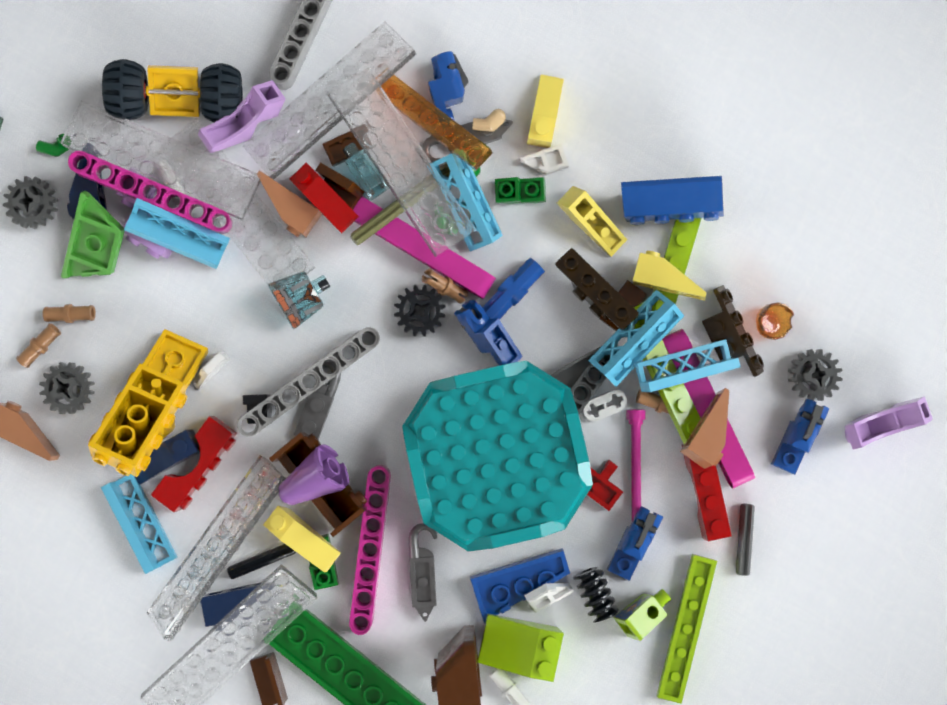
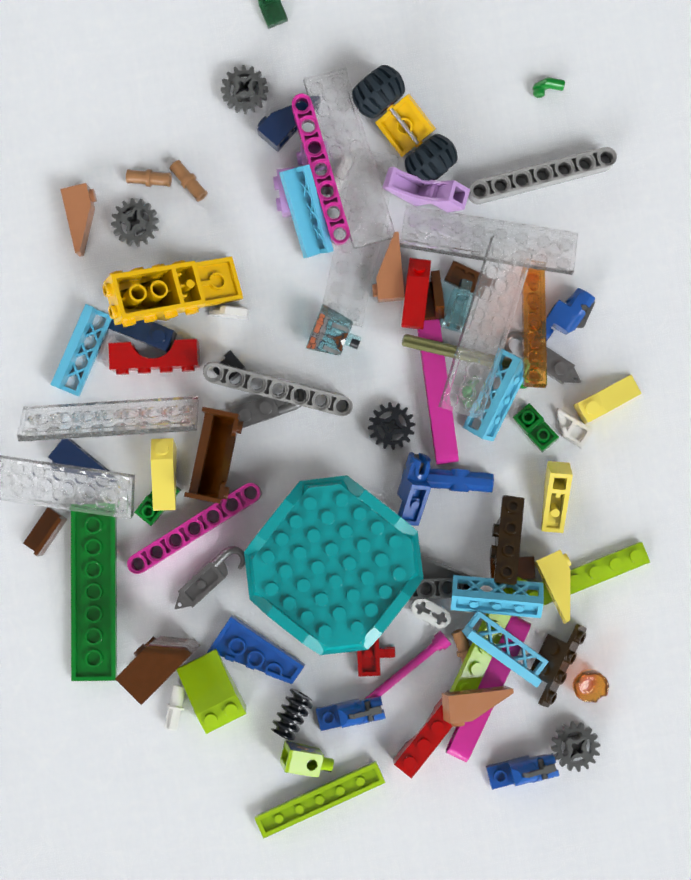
camera: 50 degrees right, 0 degrees up
(54, 149) = (296, 75): green arm -> none
(93, 240) = (253, 156): bright green wing -> none
(259, 561) = (123, 457): black axle -> none
(314, 477) = (214, 448): medium lavender cone -> none
(444, 286) = (423, 429): medium nougat pin -> none
(491, 123) = (567, 368): tan arm -> none
(547, 595) = (263, 680): white tile -> none
(673, 199) = (617, 542): blue slope -> none
(745, 538) = (416, 790): dark grey axle -> none
(887, 422) = (583, 825): lavender arch -> none

